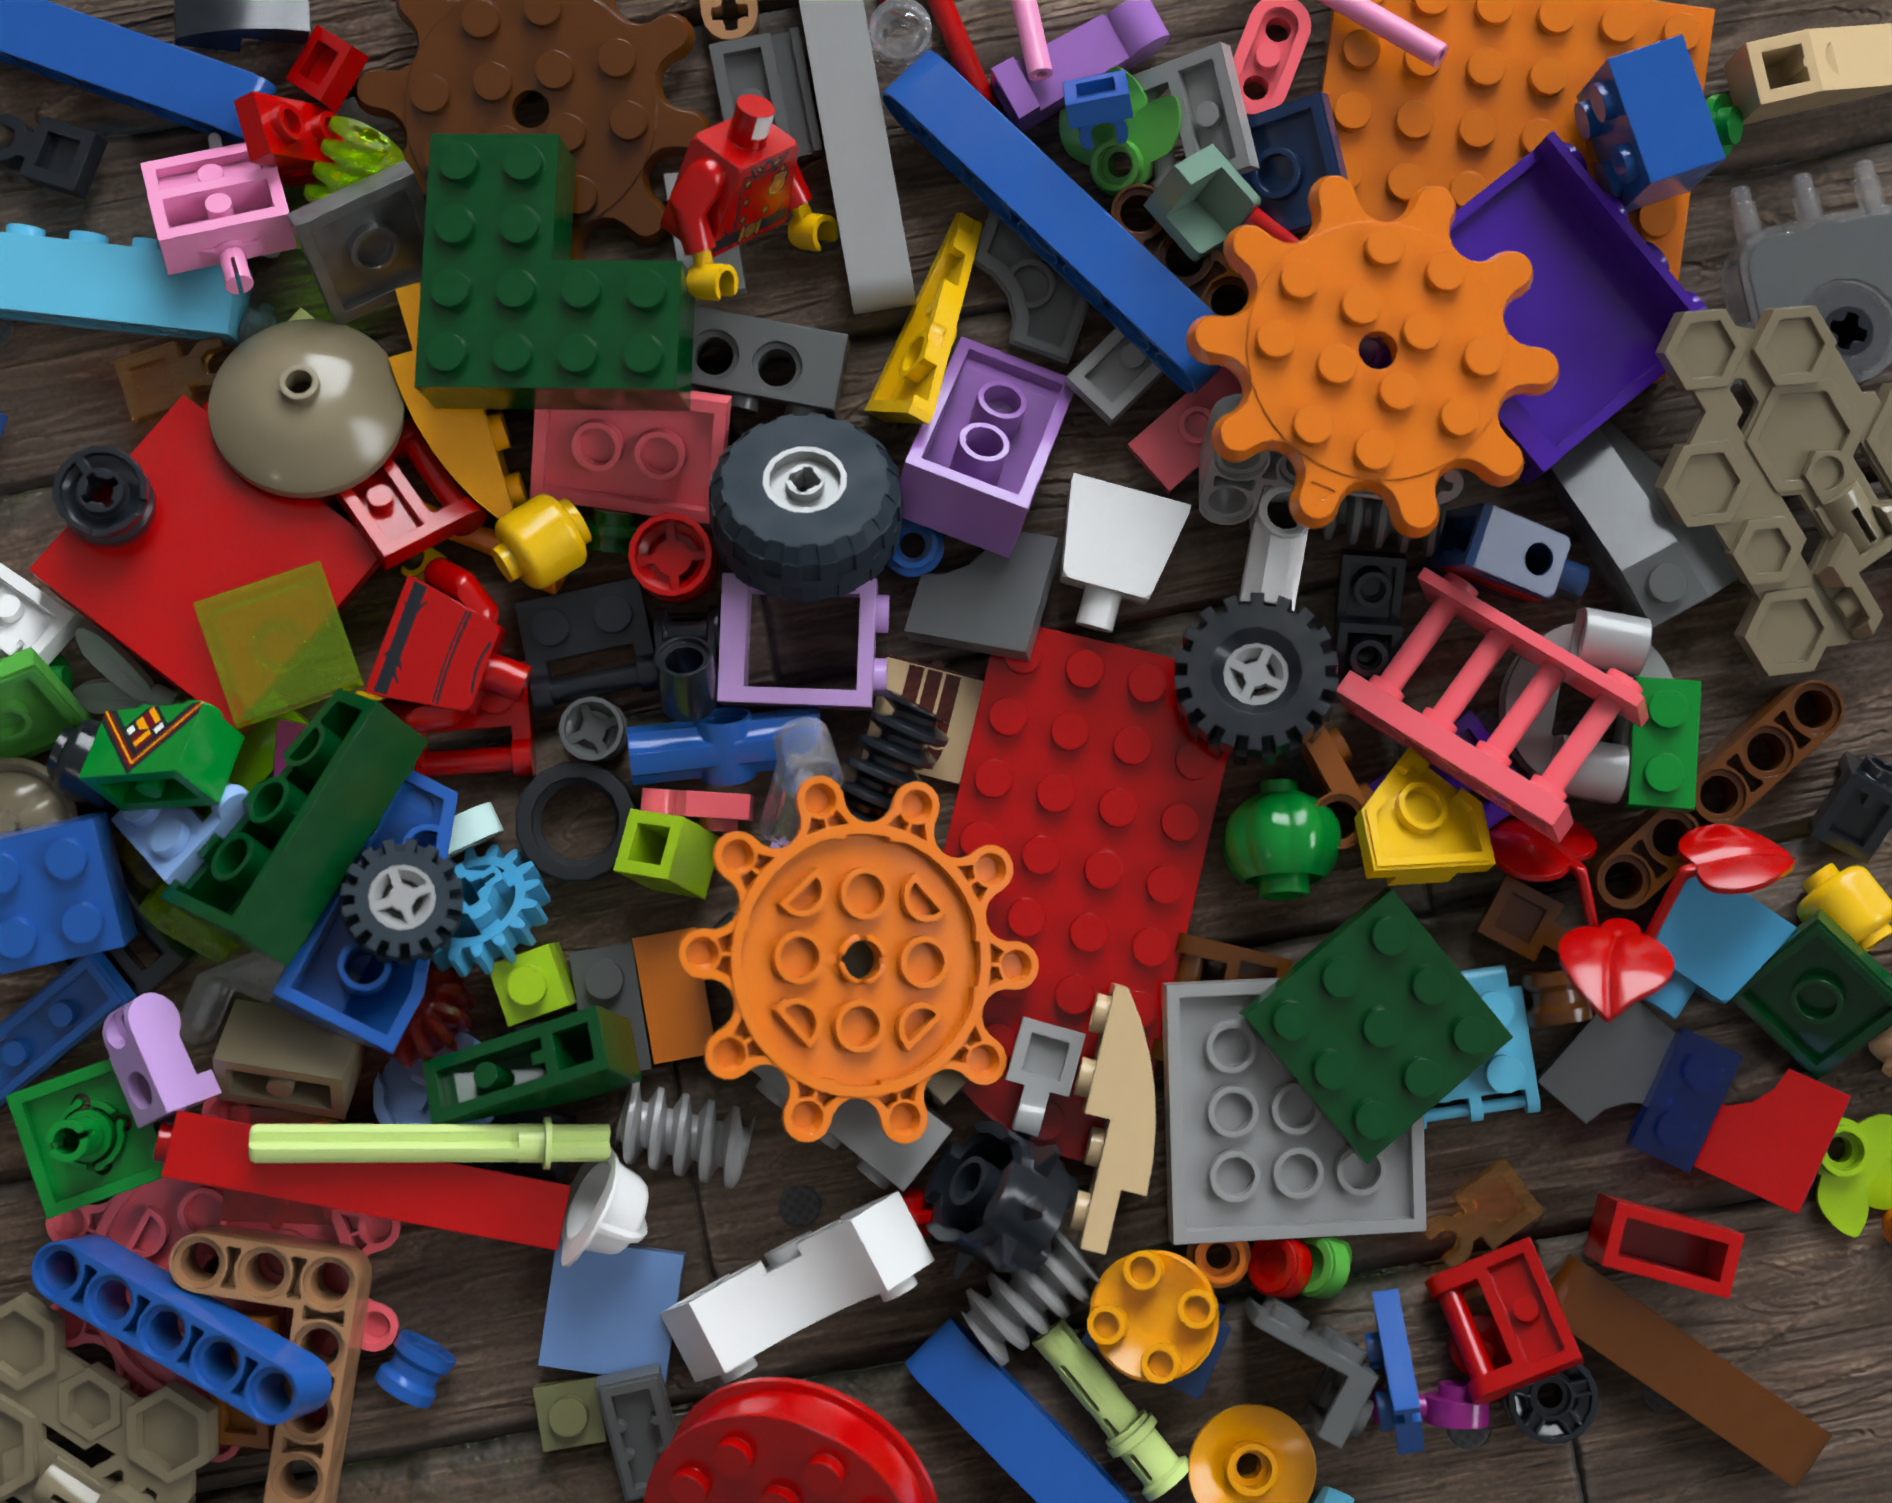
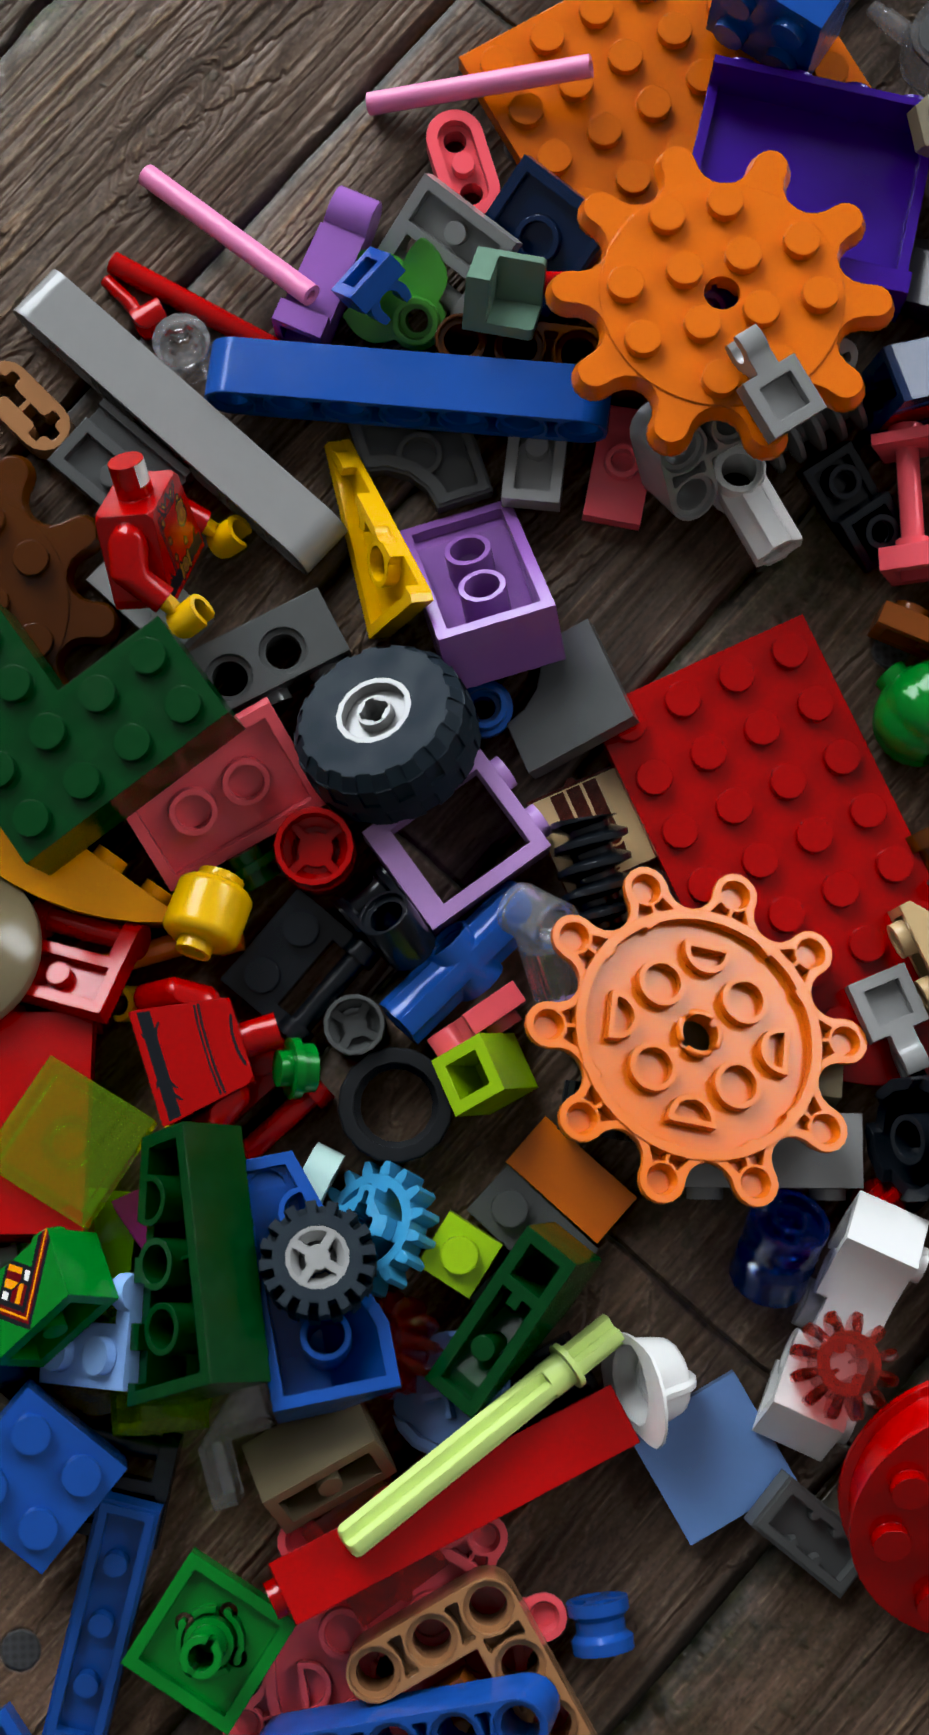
camera: 35 degrees left, 5 degrees down
(153, 1060) = (216, 1541): lavender leg -> none
(515, 728) = (296, 1068): none -> green plate
(569, 1413) = (743, 1563): olive plate -> none
(683, 1135) = (663, 1277): light grey piece -> none
(761, 1342) = (855, 1387): none -> clear red gear
(795, 1186) = (779, 1249): none -> clear blue wheel
(1116, 546) = (633, 592): white torso -> none
(1266, 649) = (814, 576): black wheel -> none
(1347, 477) = (778, 392): none -> light grey plate

